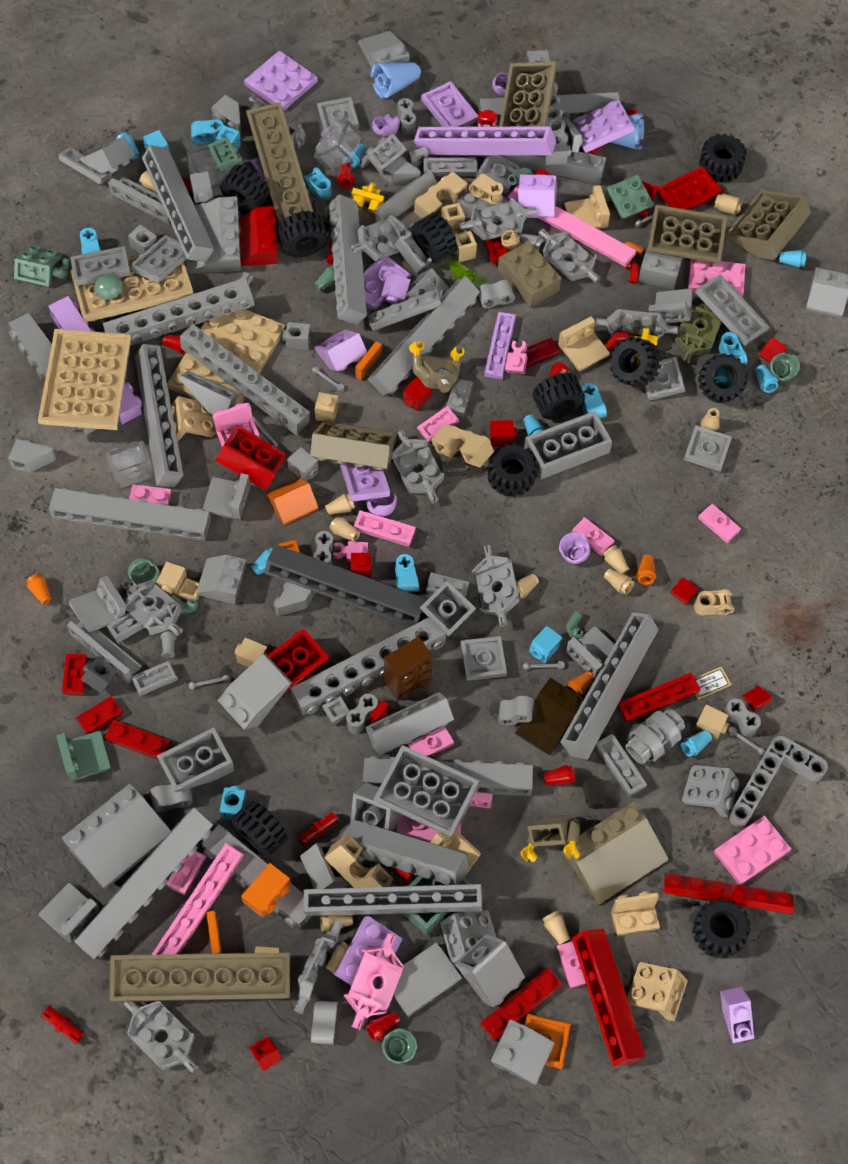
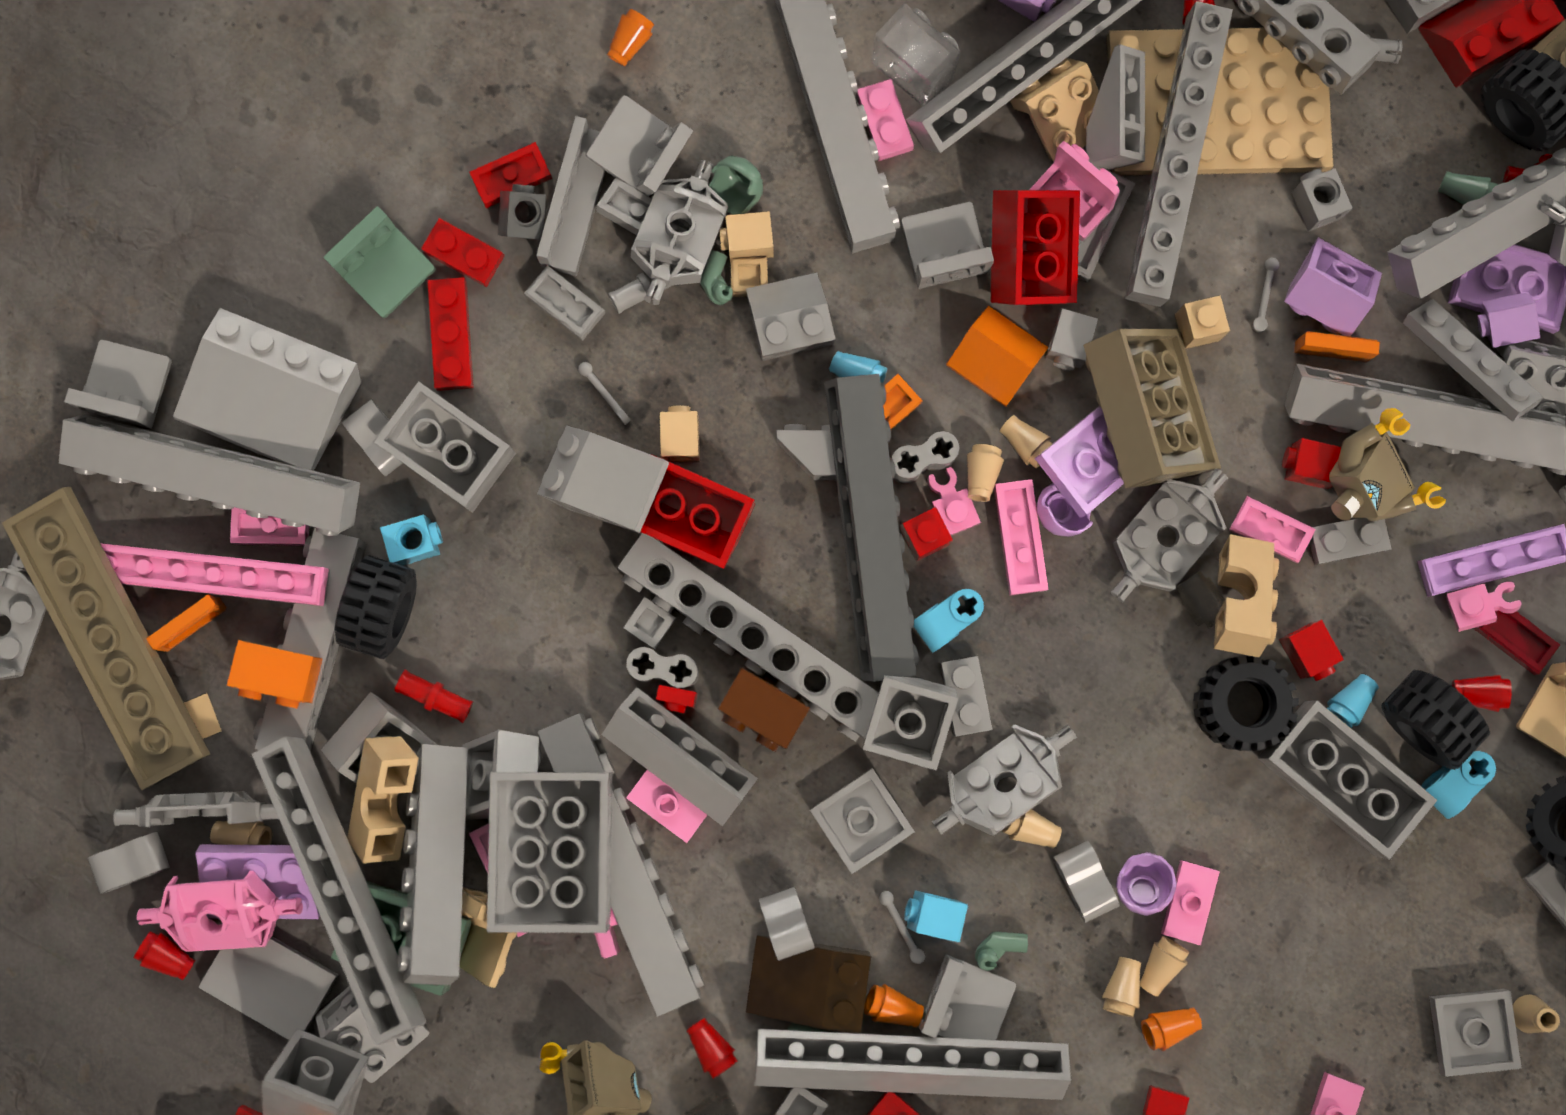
camera: 65 degrees right, 20 degrees up
(265, 1053) = (48, 793): red slope -> none
(399, 1046) = (140, 999): sand green hair -> none
(561, 574) = (1086, 881): none -> light grey axle

